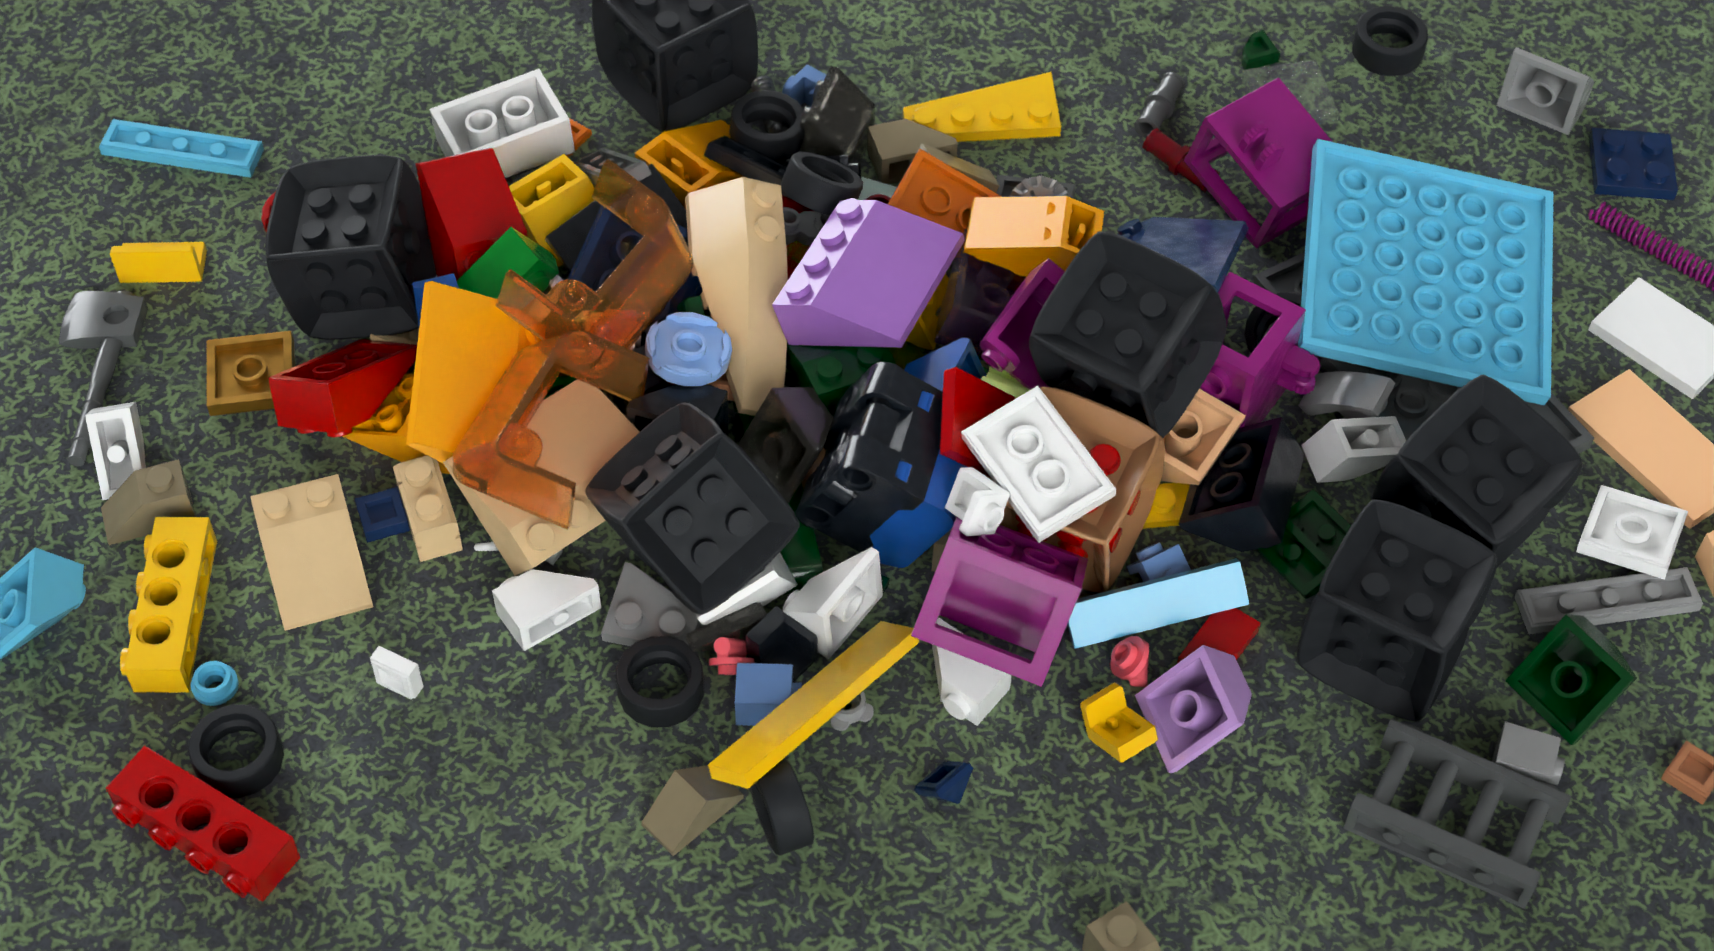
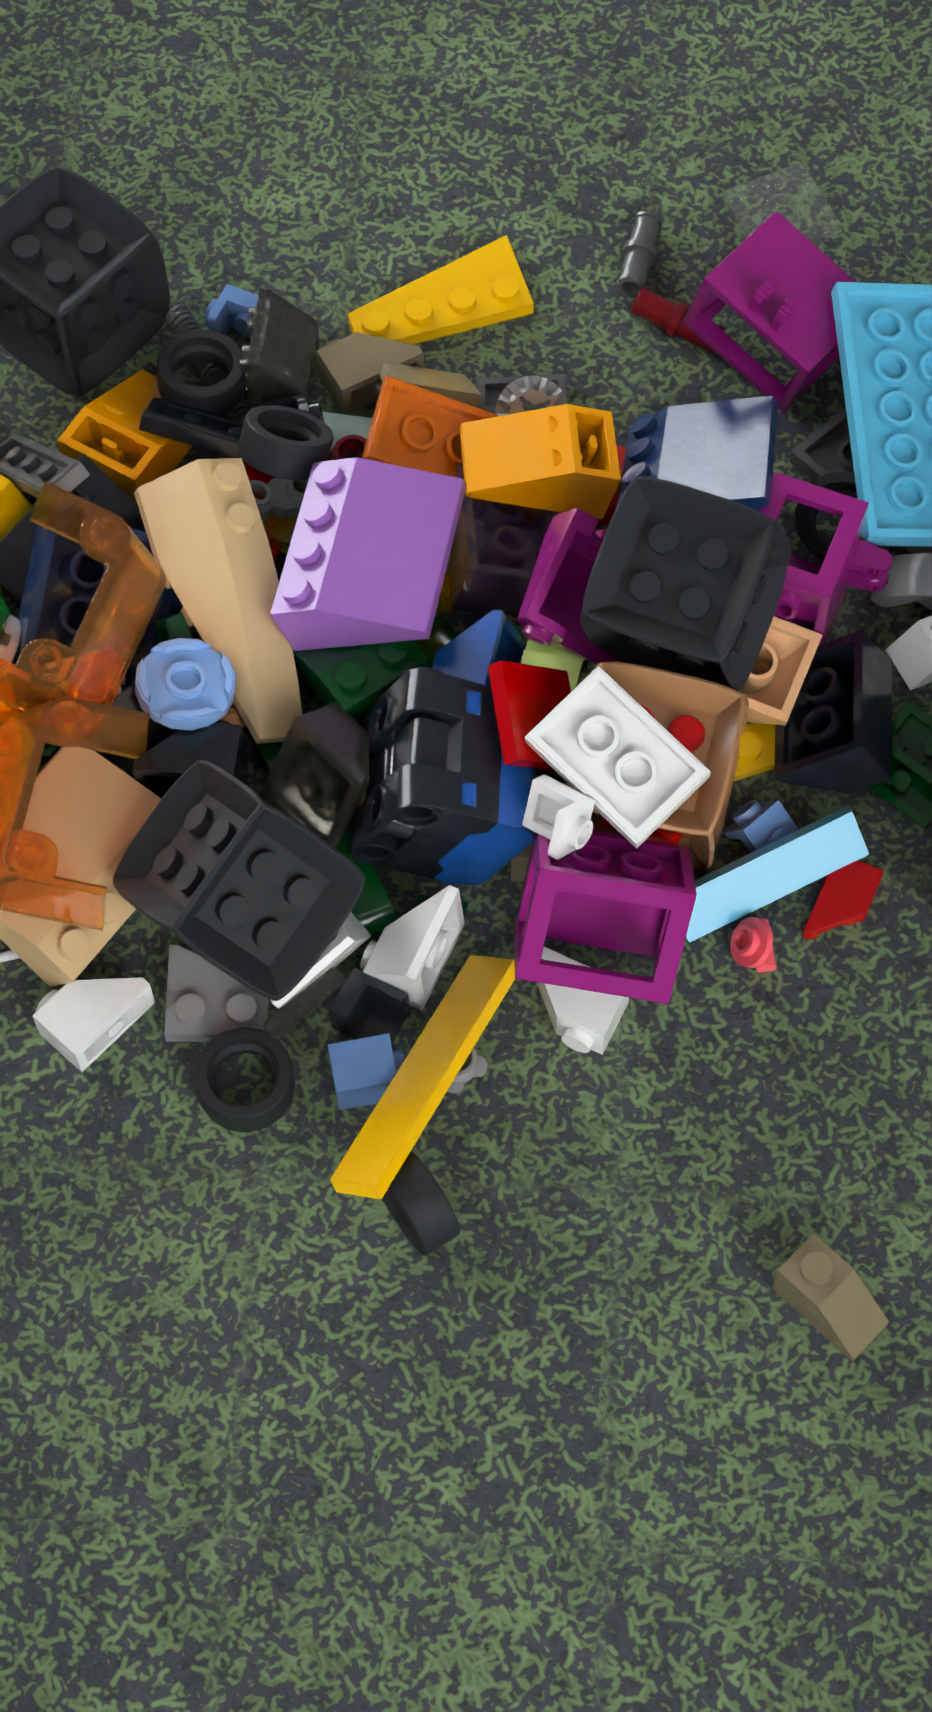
camera: 10 degrees left, 10 degrees up
(688, 807) = (310, 1221): dark tan slope -> none
(729, 653) = (316, 1034): coral plate -> none
(946, 782) = (584, 1129): dark blue slope -> none
(1115, 725) = (755, 1026): yellow bracket -> none
(1195, 705) = (836, 986): lavender slope -> none
(1259, 51) = (735, 162): dark green tile -> none
(1389, 60) = (875, 147): black tyre -> none

